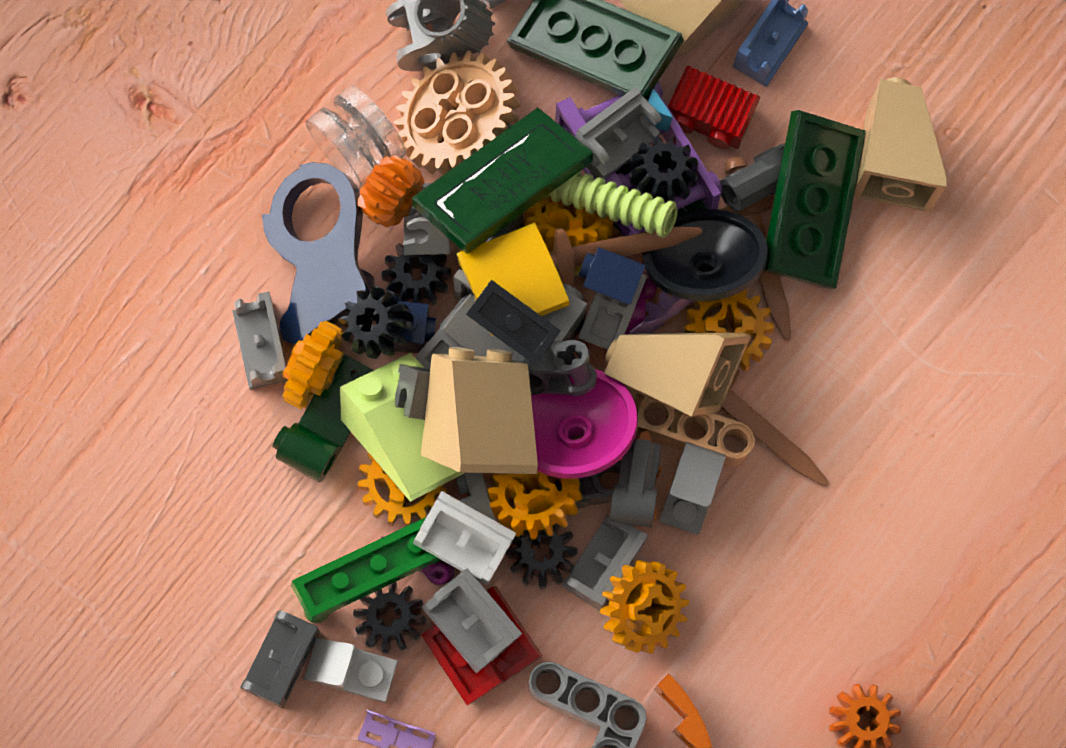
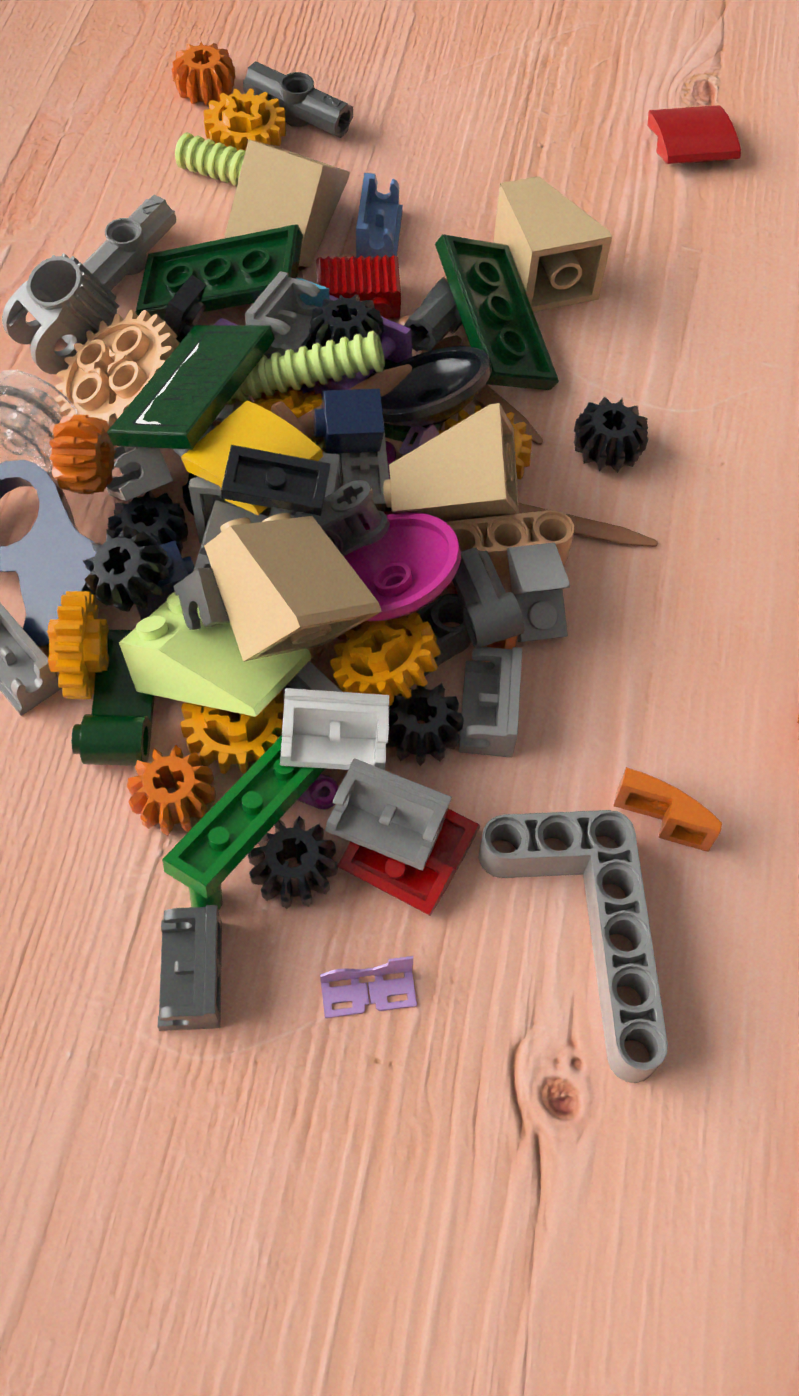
camera: 25 degrees left, 15 degrees down
(315, 522) = (155, 778): none -> orange gear
(351, 669) = (278, 943): white slope -> none
(540, 83) = (186, 307): none -> black hinge
(644, 606) = (559, 719): light orange gear -> none
(856, 355) = (610, 434): none -> black gear

